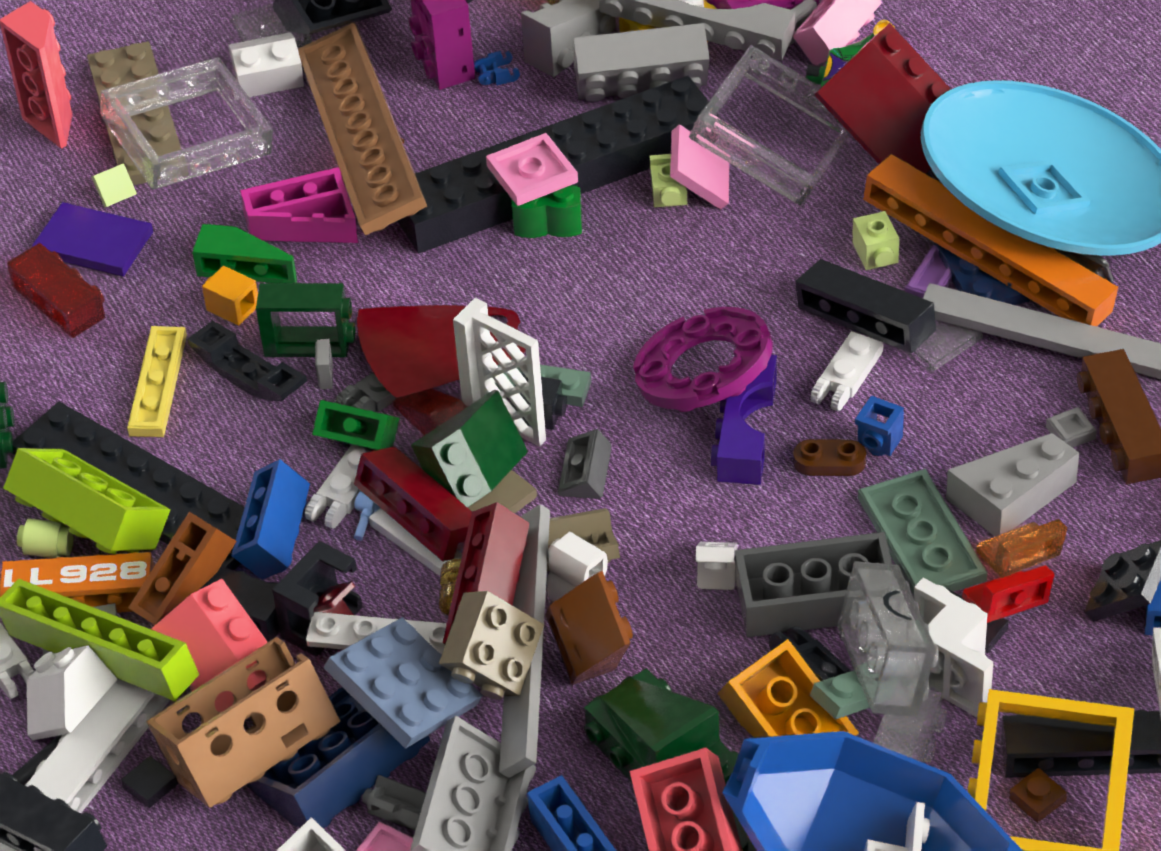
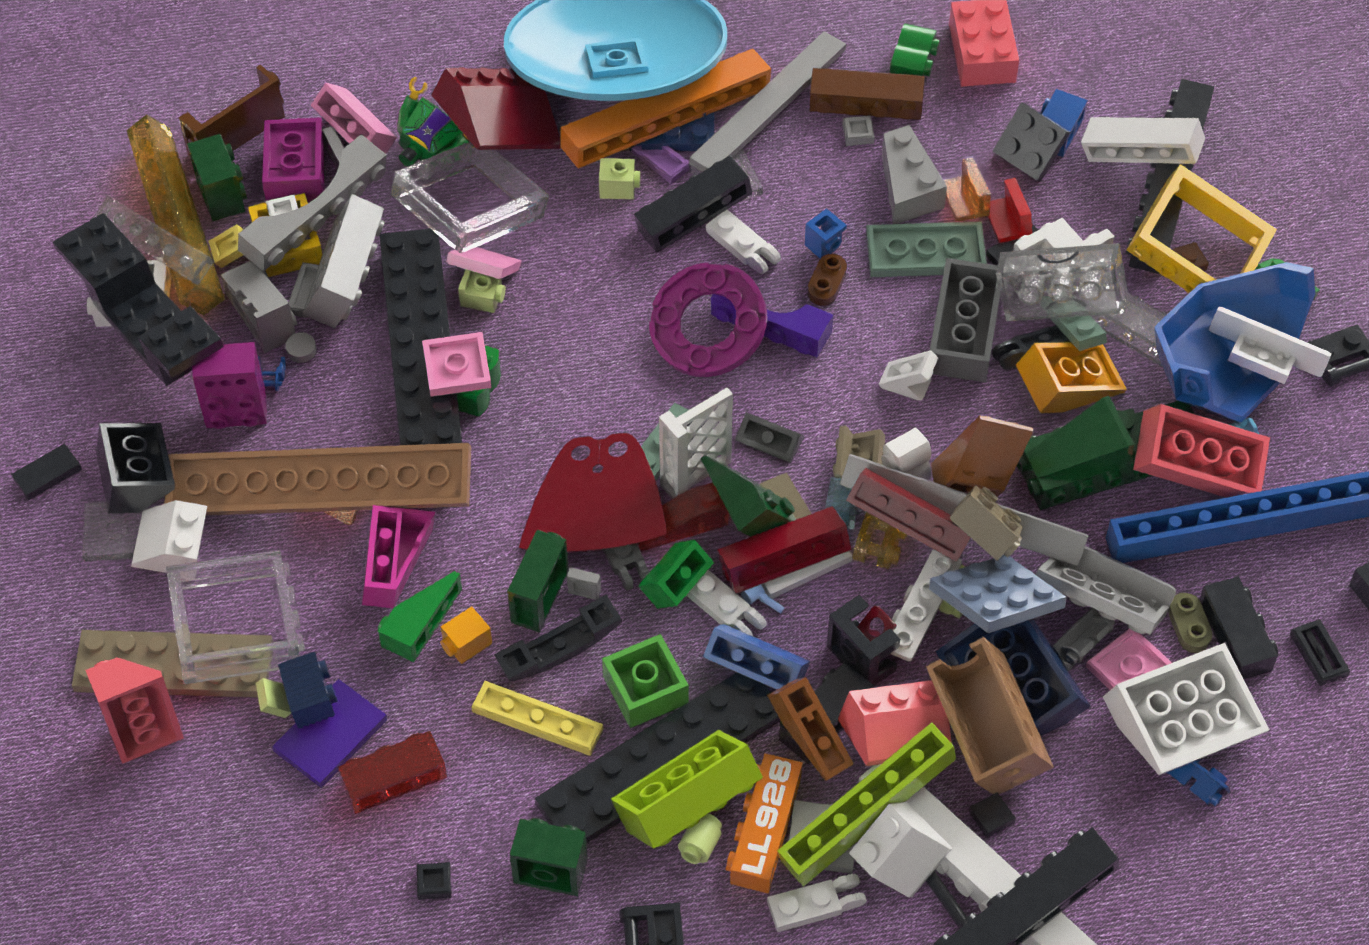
camera: 75 degrees left, 10 degrees up
(122, 197) = (307, 690): none -> dark blue brick
(214, 438) = (645, 681): none -> bright green brick
(538, 80) = (301, 347): none -> light grey tile

